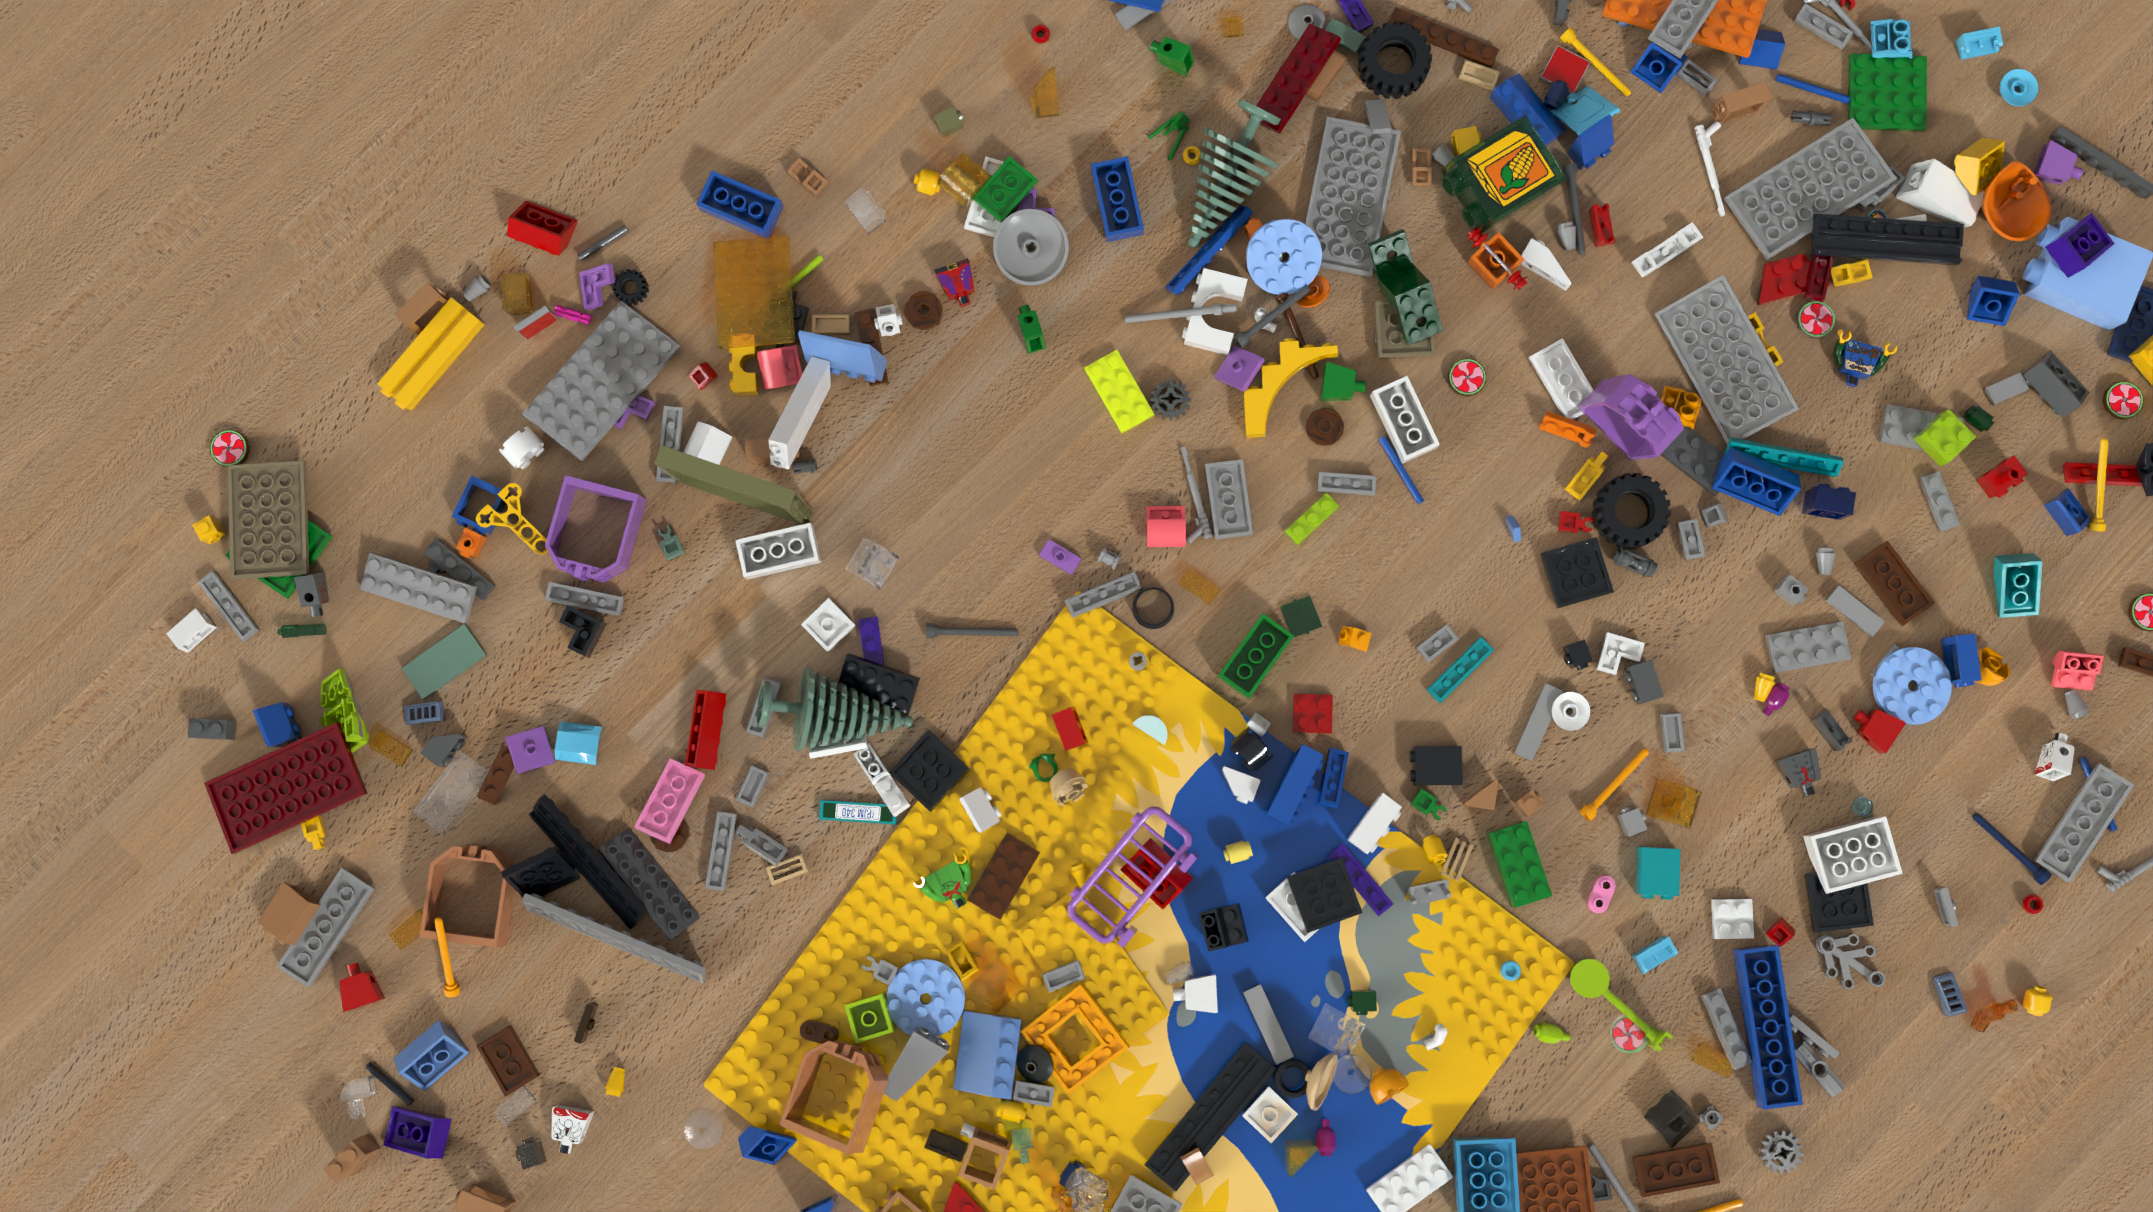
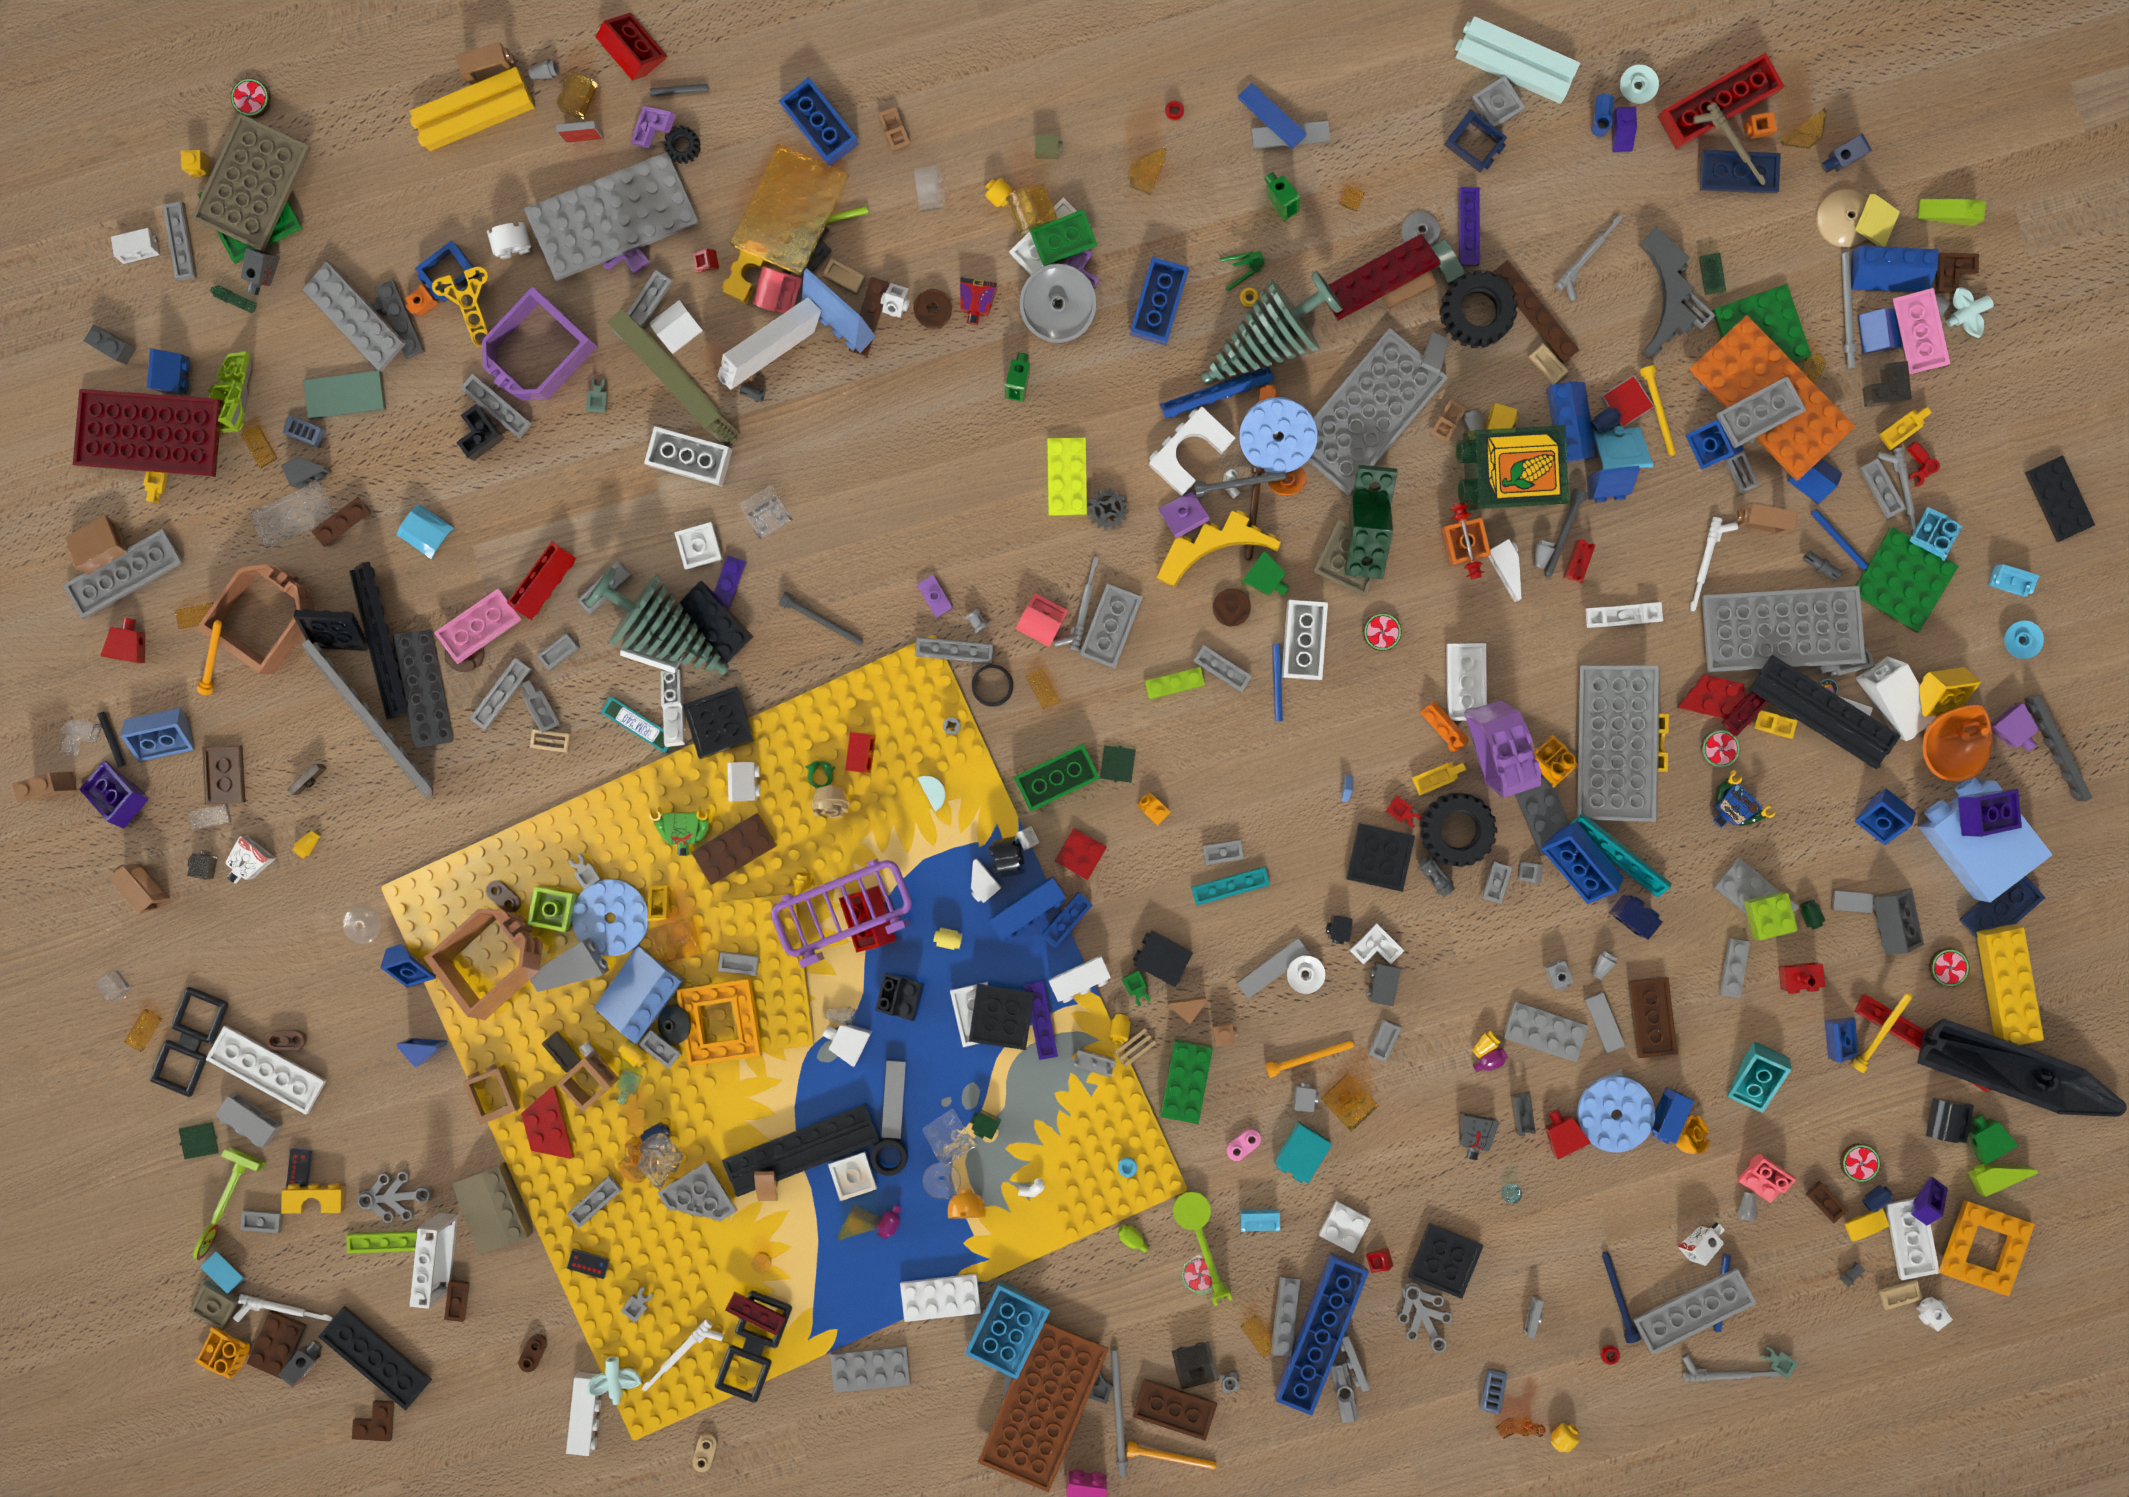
camera: 15 degrees right, 5 degrees up
(529, 750) = (379, 514): medium lavender plate -> none
(572, 314) = (618, 142): dark pink axle -> none
(1216, 309) = (1191, 450): light grey bar -> none
(1320, 1080) = (909, 1172): tan dish -> none
(1784, 1159) = (1265, 1441): light grey gear -> none
(1853, 854) = (1479, 1229): white slope -> none

